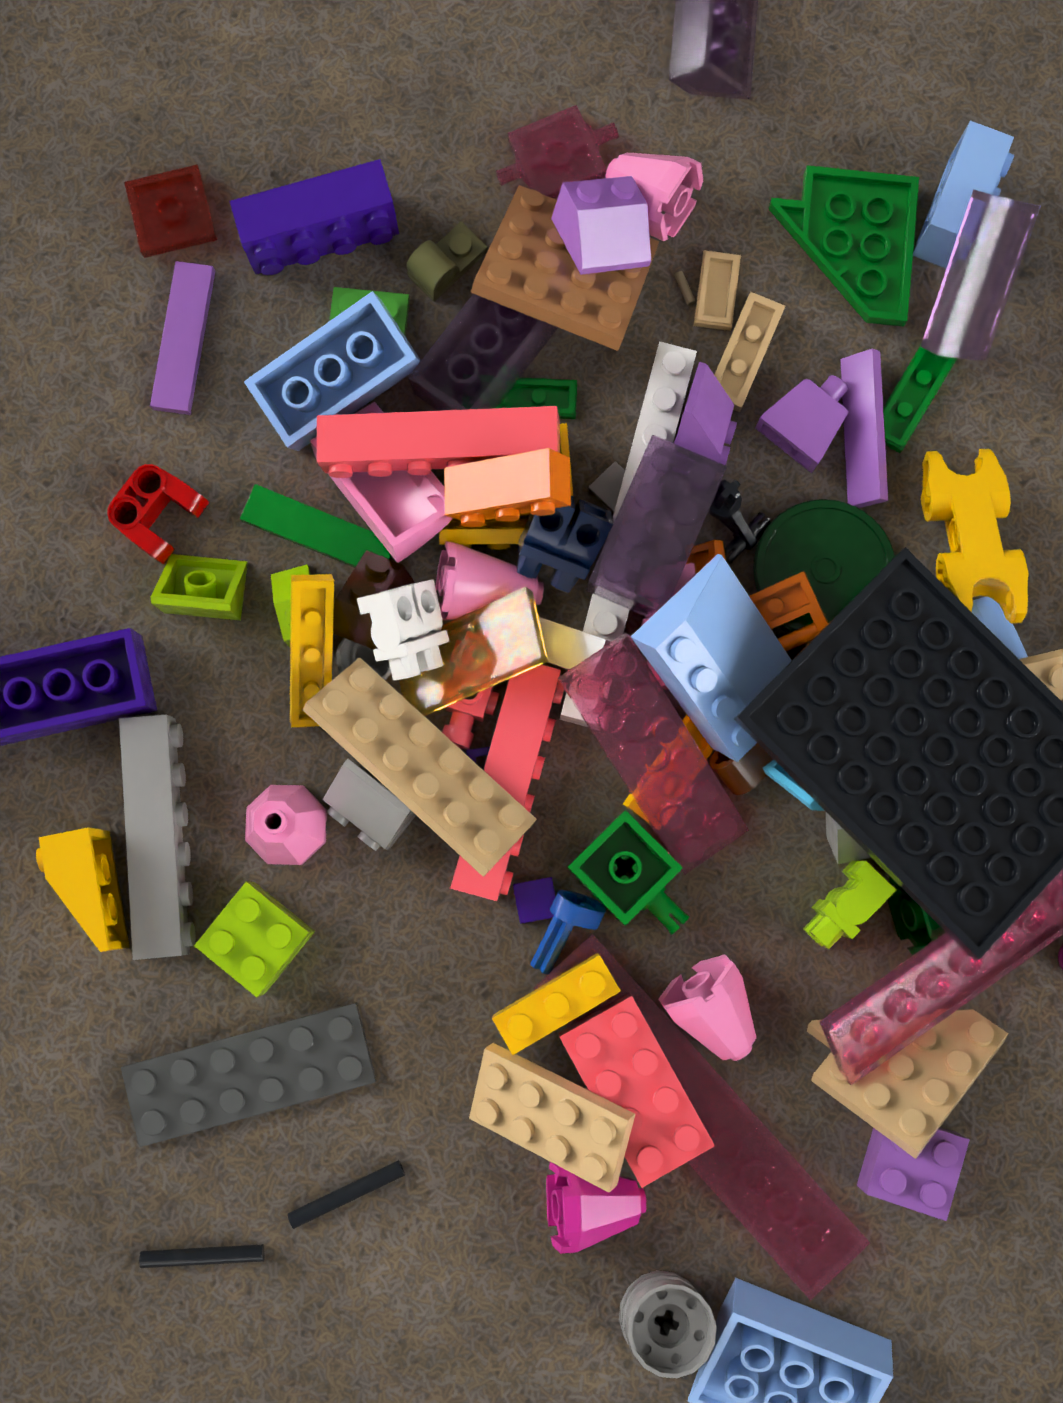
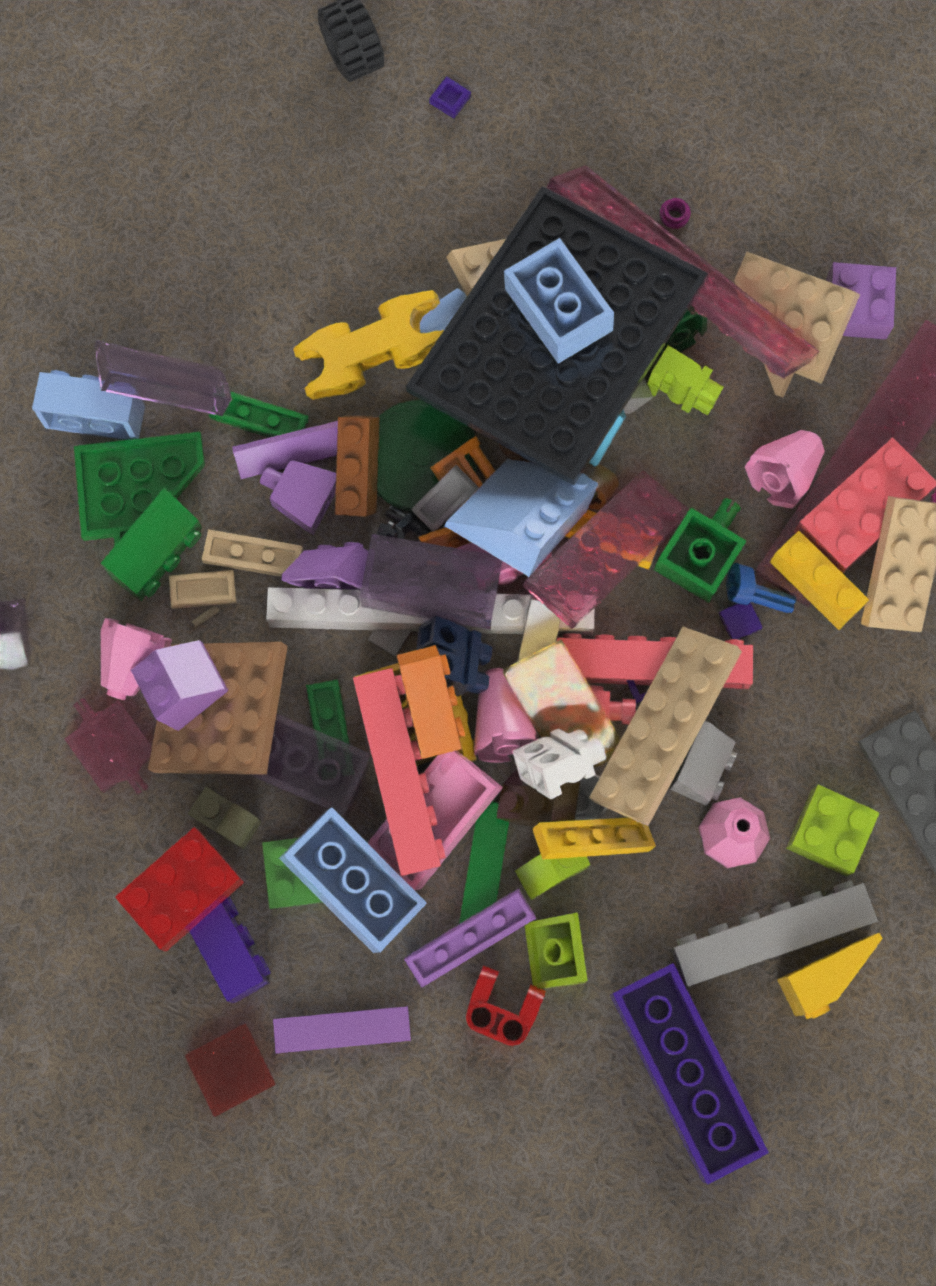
camera: 105 degrees left, 5 degrees down
(243, 495) = (470, 937): none -> medium lavender tile
(359, 166) = (179, 889): none -> red brick
(761, 578) = (444, 498): none -> light grey tile
(778, 235) = (152, 546): none -> green slope
(824, 483) = (357, 465): none -> dark orange brick
(977, 752) = (559, 300): none -> light blue brick

